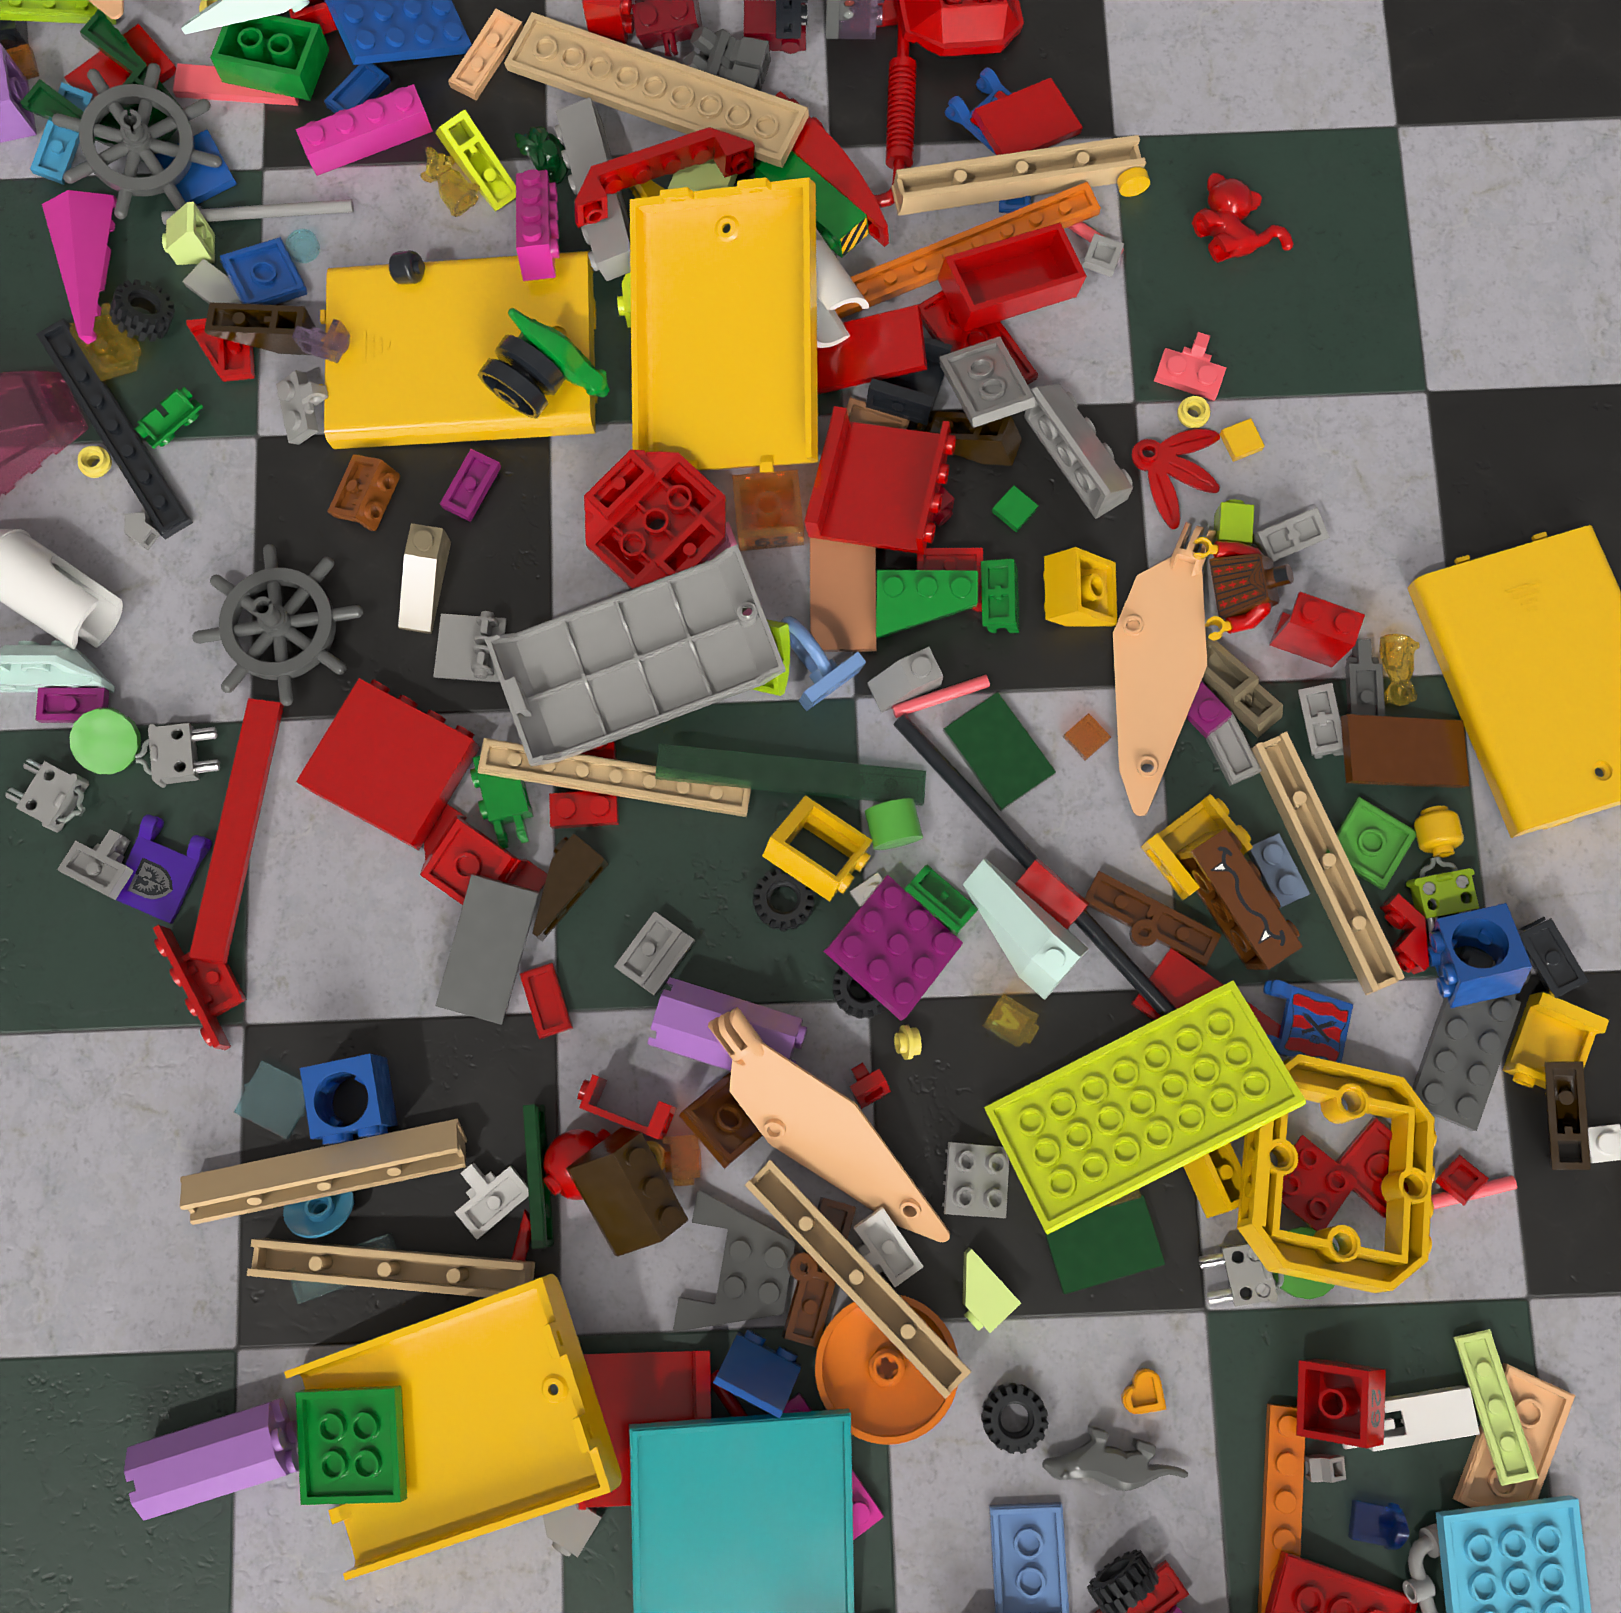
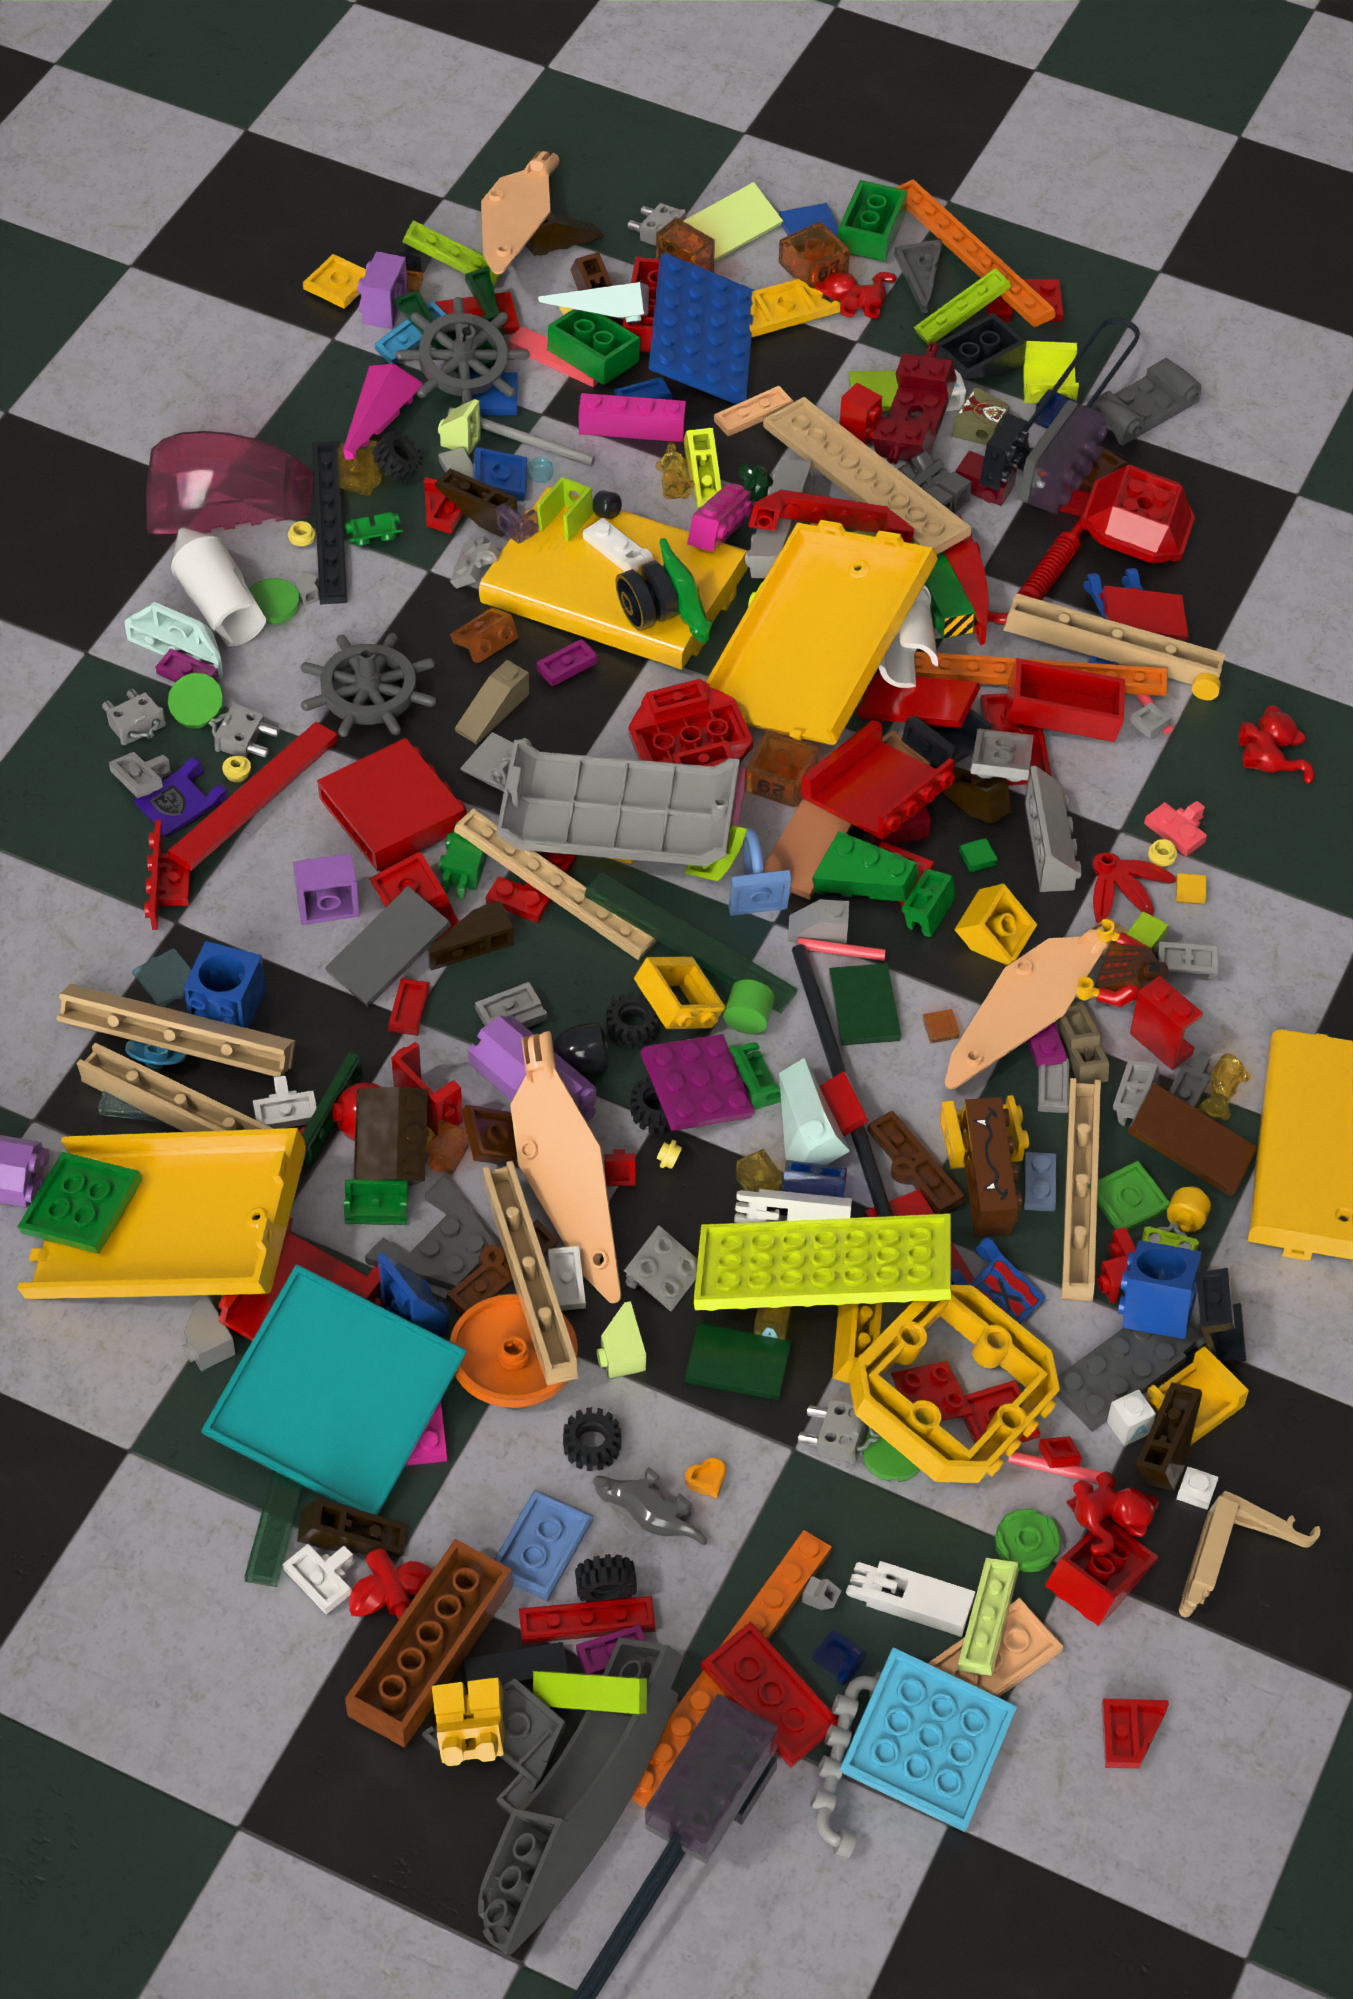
camera: 25 degrees right, 25 degrees down
(113, 562) = (276, 599): none -> bright green tile
(206, 804) = (236, 768): none -> light yellow plate
(350, 284) = (561, 496): none -> lime piece
(382, 914) = (326, 889): none -> medium lavender brick
(447, 317) = (616, 546): none -> white plate
(649, 1264) = (376, 1202): none -> green hinge
(755, 968) = (583, 1048): none -> black piece
(1067, 1046) = (799, 1206): none -> white hinge
(1074, 1009) = (814, 1179): none -> clear blue brick
(1341, 1402) = (860, 1539): red brick -> none
(1479, 1291) = (1028, 1539): none -> bright green tile
(1511, 1106) = (1131, 1417): none -> white brick
(1559, 1211) = (1125, 1507): none -> red animal
(1570, 1293) = (1100, 1583): none -> red slope

